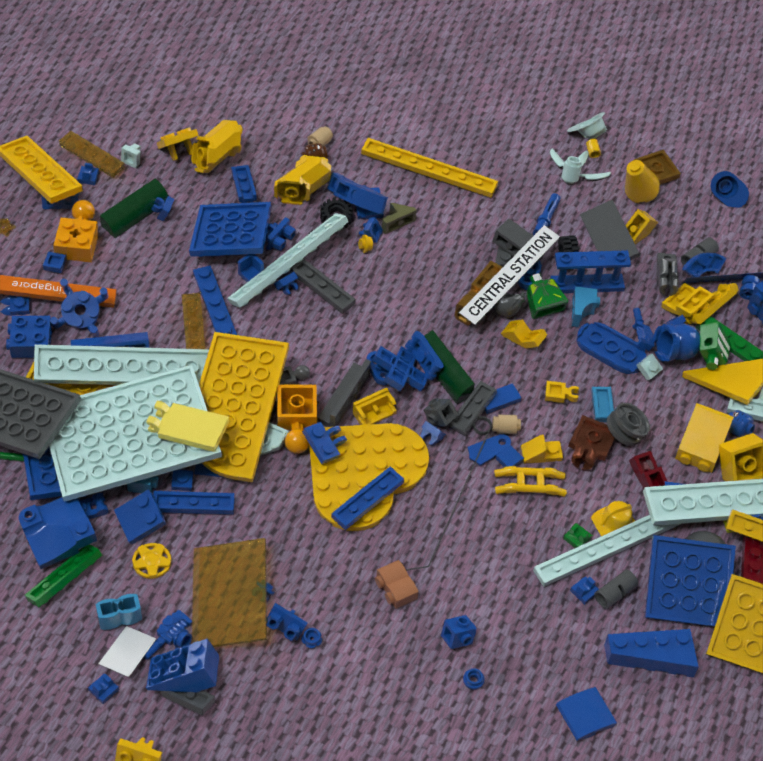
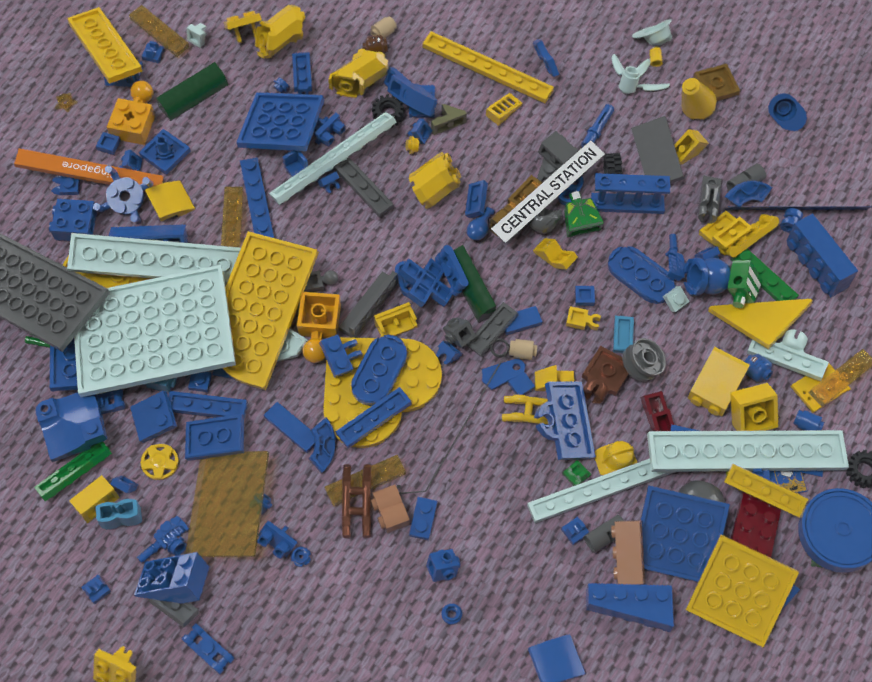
camera: 10 degrees right, 10 degrees up
(81, 276) = (131, 161): none -> blue tile
(85, 600) = (93, 495): none -> yellow hinge
(117, 262) = (161, 149): none -> blue plate
(119, 583) = (124, 484): none -> blue tile
(126, 311) = (169, 200): none -> yellow slope
(127, 651) = (123, 553): white sticker -> none
(163, 208) = (220, 92): blue tile -> none
(188, 425) = (207, 331): light yellow tile -> none
(206, 531) = (214, 437): none -> blue tile
(224, 196) = (281, 85): none -> blue plate
(229, 735) = (207, 648): none -> blue plate
(283, 516) = (290, 427): none -> blue tile
(319, 530) = (324, 445): none -> blue tile
(365, 453) = (379, 369): none -> blue tile
(366, 560) = (380, 474): none -> clear yellow plate
(369, 568) = (365, 492): none -> copper piece
(395, 272) = (435, 179): none -> yellow brick
(430, 591) = (423, 518): none -> blue plate
(437, 289) = (476, 199): none -> blue plate
(444, 315) = (479, 228): none -> blue piece
(445, 213) = (500, 118): none -> yellow slope
(483, 152) = (545, 56): none -> blue tile
(559, 370) = (584, 296): none -> blue plate
(561, 485) = (567, 421): none -> plate
(583, 304) = (620, 226): dark azure arch -> none
(642, 600) = (628, 552): none -> nougat brick

